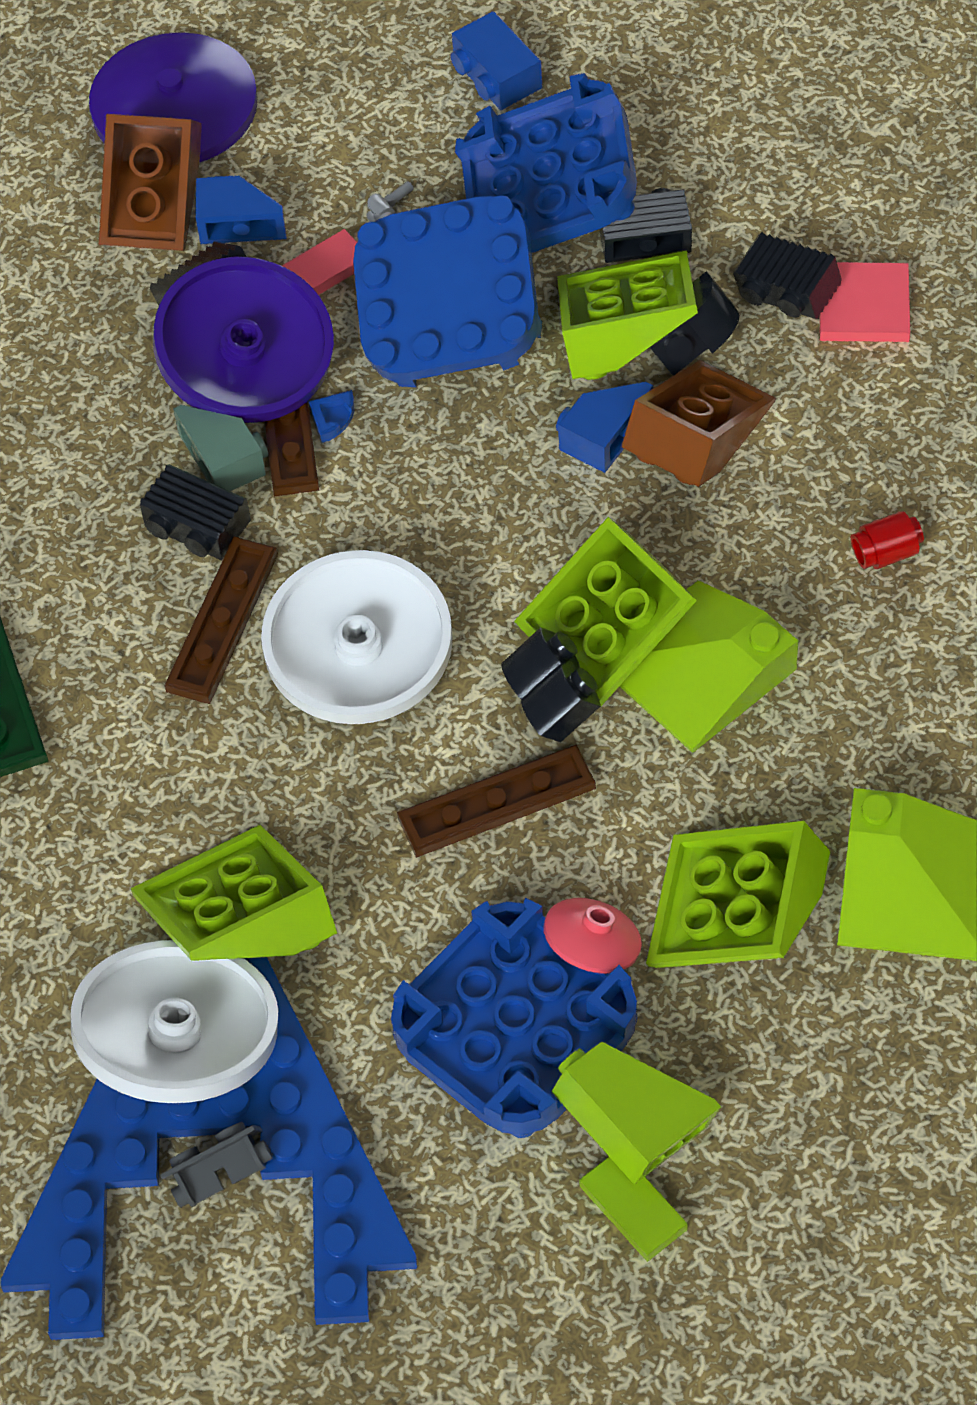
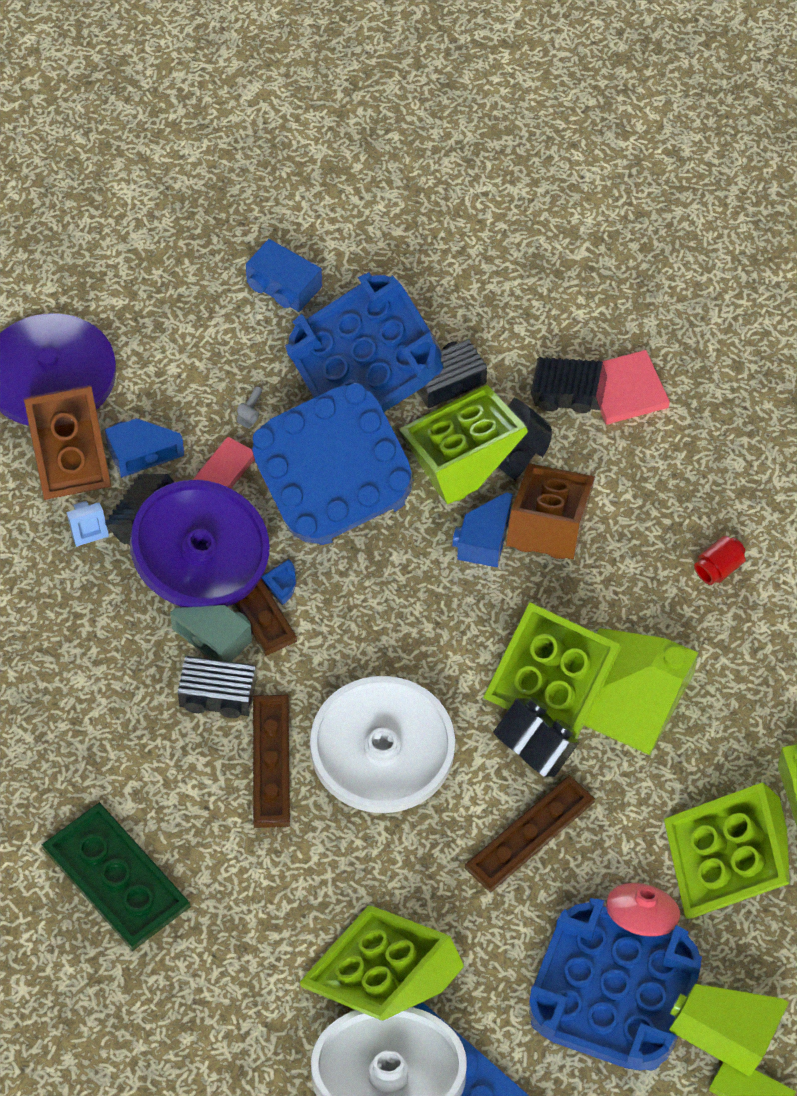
camera: 25 degrees left, 0 degrees up
(130, 282) = (87, 523): none -> light blue tile

